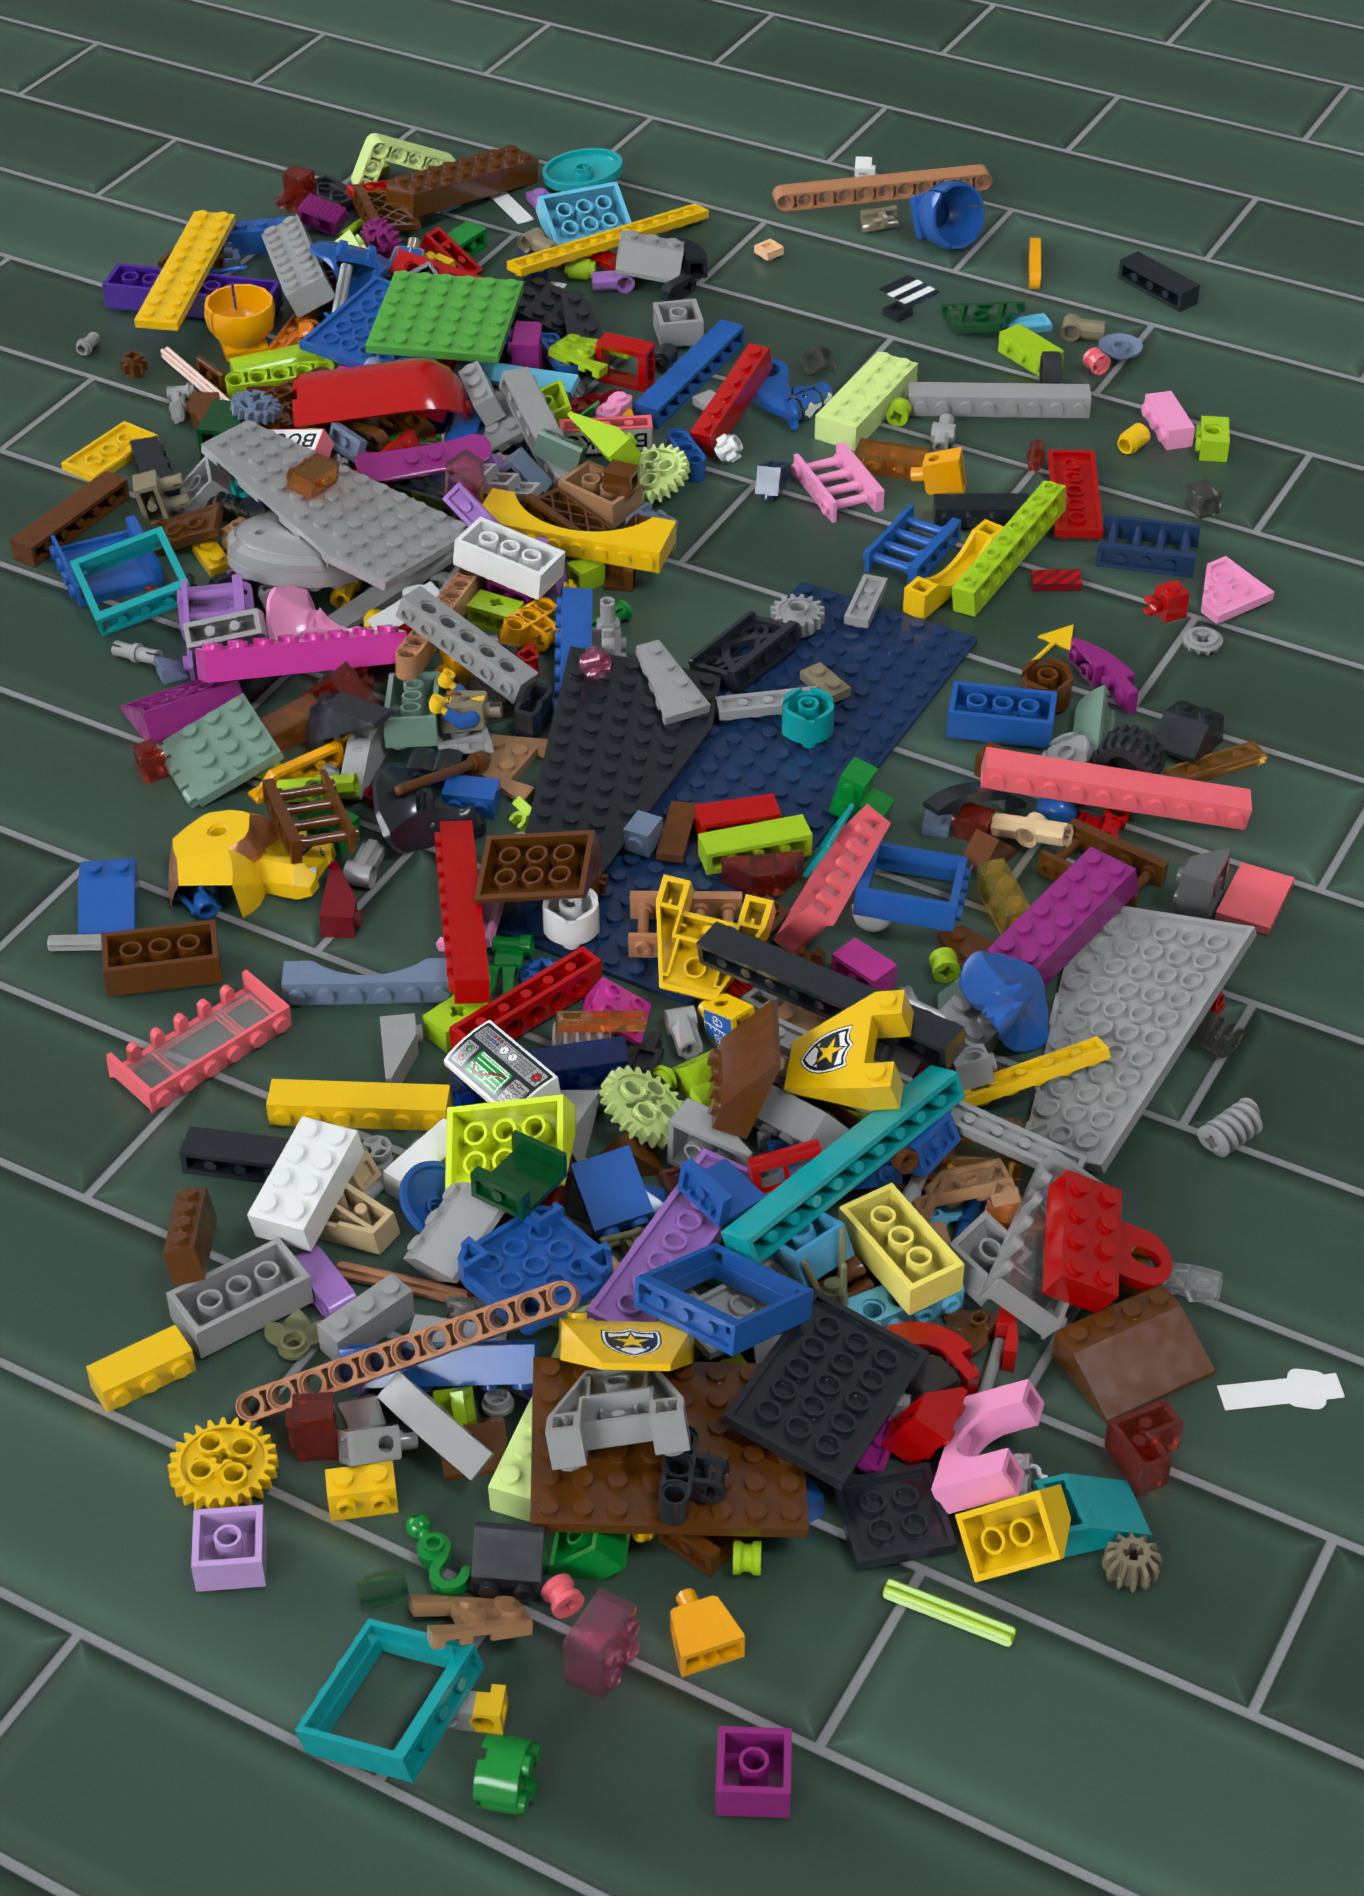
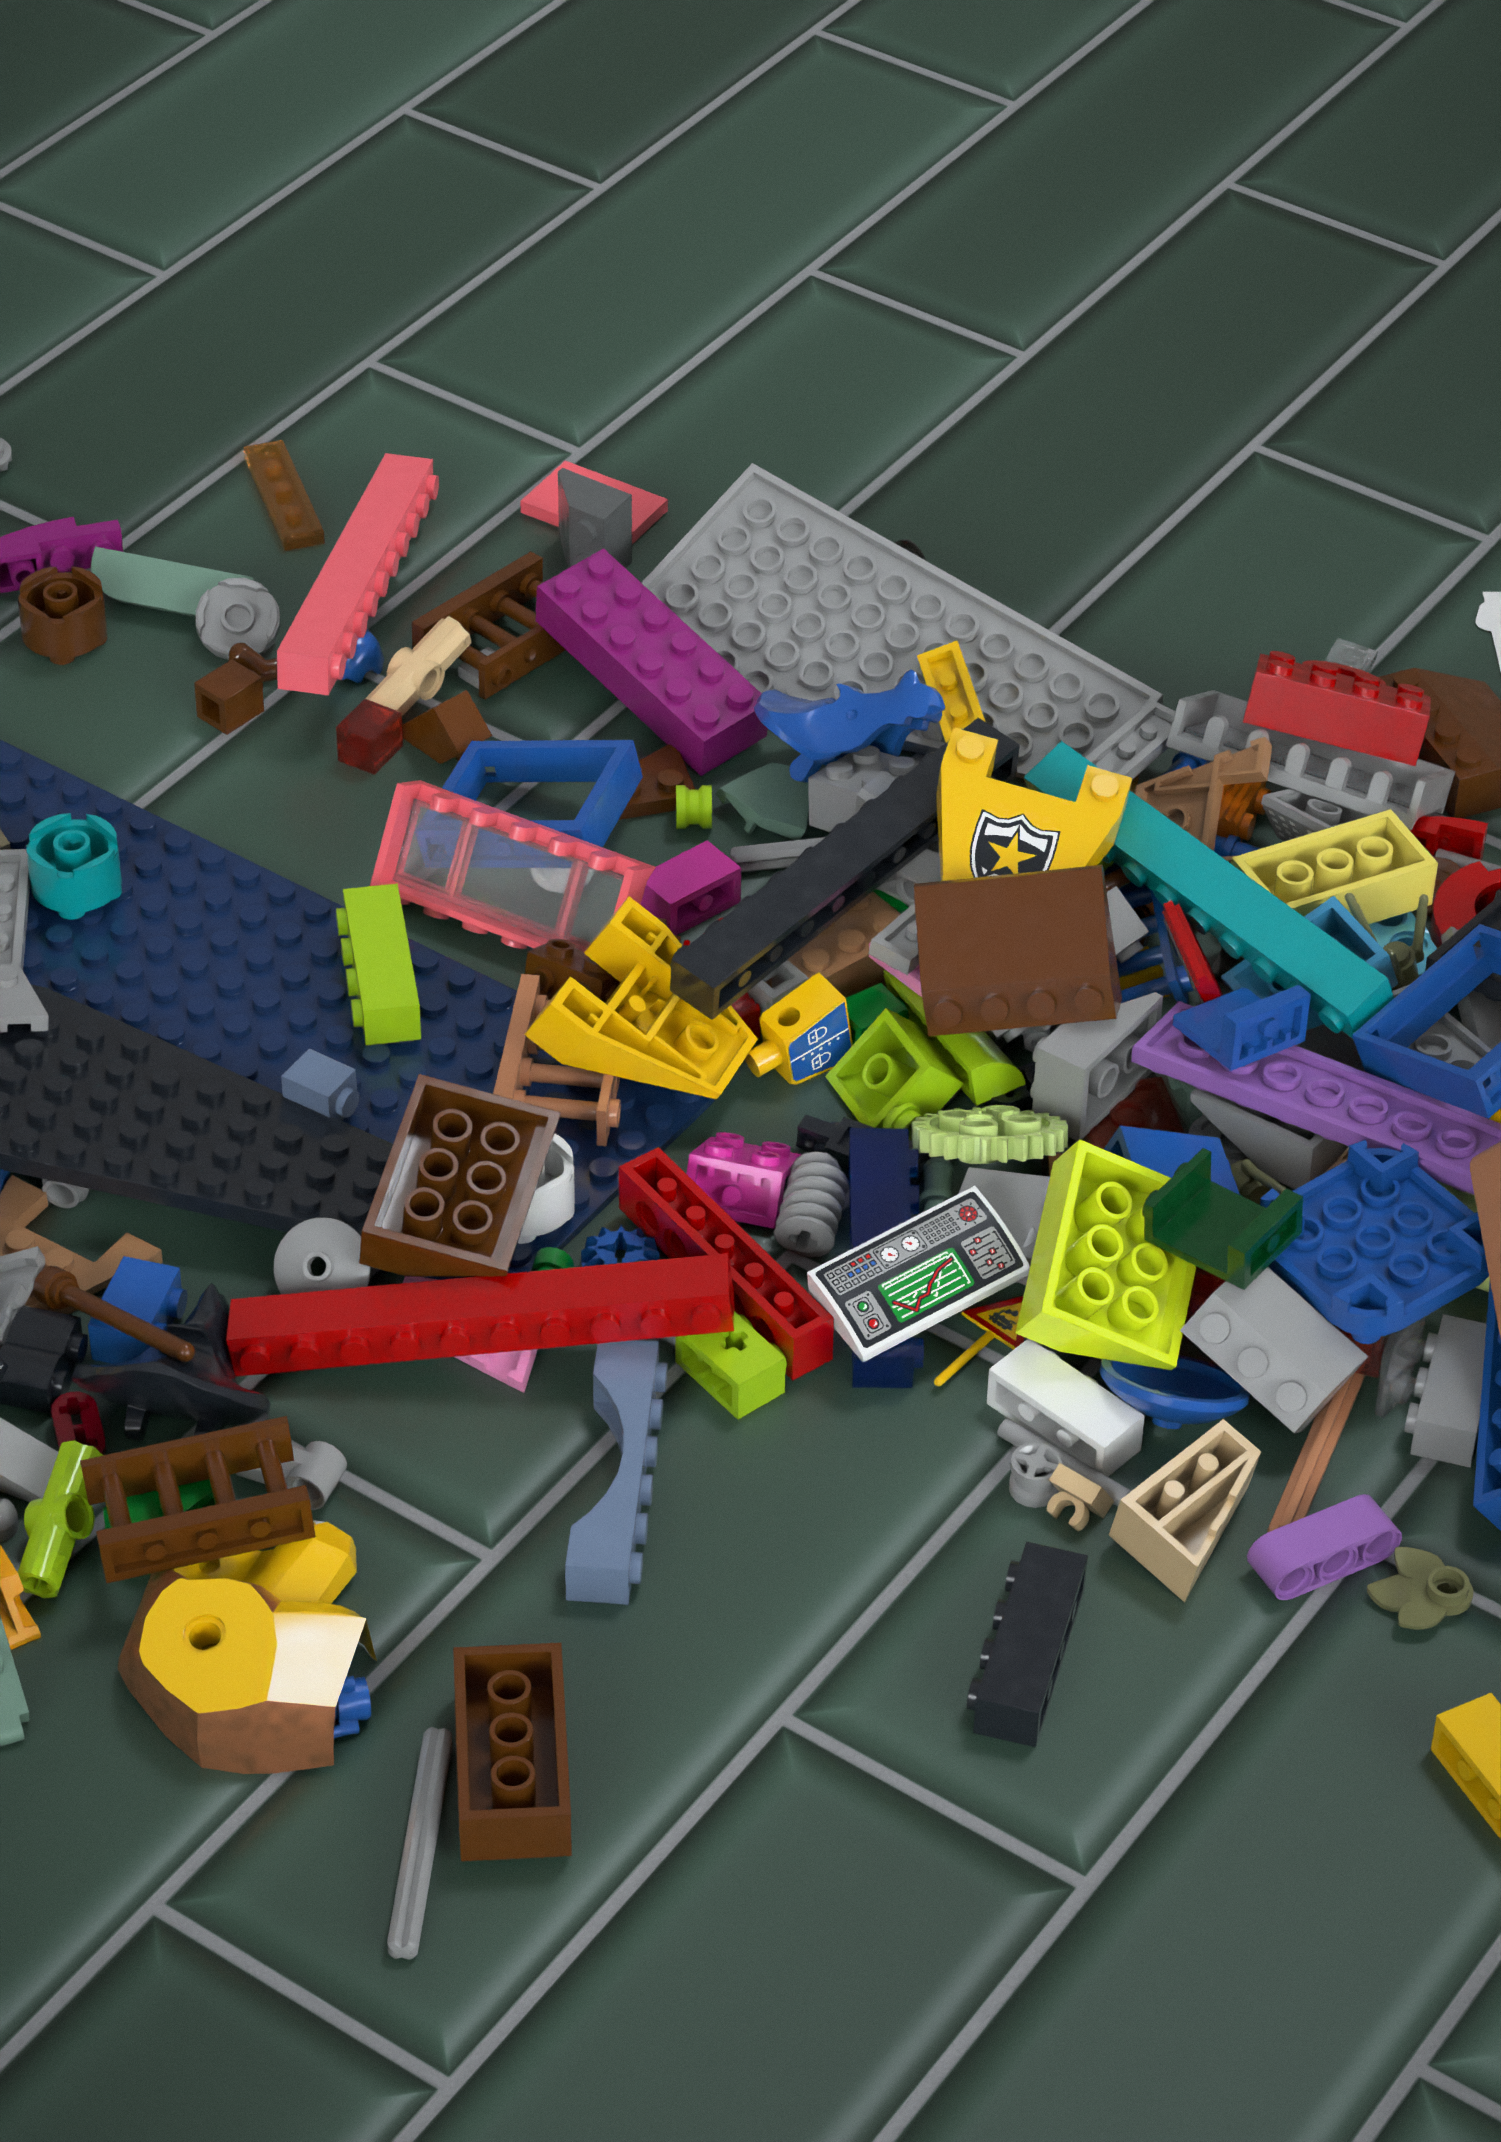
camera: 85 degrees left, 0 degrees up
(107, 896) = (306, 1851): blue slope -> none
(190, 1236) = (1255, 1682): reddish brown brick -> none
(202, 1045) = (733, 1704): window -> none
(240, 1297) = (1367, 1638): light grey brick -> none
(306, 1183) = (1175, 1508): white brick -> none
(339, 906) = (395, 1504): dark red slope -> none
(358, 1104) = (921, 1494): yellow brick -> none
(367, 1316) = (1410, 1489): light grey brick -> none
(399, 1045) = (799, 1438): light grey slope -> none
(523, 814) = (205, 1240): lime tile -> none
(601, 1021) = (806, 1158): clear orange tile -> none
(676, 832) = (278, 1049): reddish brown tile -> none
(683, 1027) = (778, 1097): light grey piece -> none
(735, 812) = (309, 978): red brick -> none
(763, 873) = (456, 961): clear red slope -> none
(828, 840) = (401, 845): teal window -> none
(857, 789) = (299, 832): green brick -> none
(936, 825) = (347, 783): sand blue plate -> none
(950, 799) = (339, 724): black slope -> none
(1000, 893) = (563, 716): clear yellow brick -> none
(1001, 714) = (119, 667): blue brick -> none
(1110, 823) = (396, 616): red piece -> none
(1134, 745) = (292, 543): black tyre -> none
(1189, 731) = (222, 494): black slope -> none
(1231, 1128) = (1071, 589): light grey piece -> none

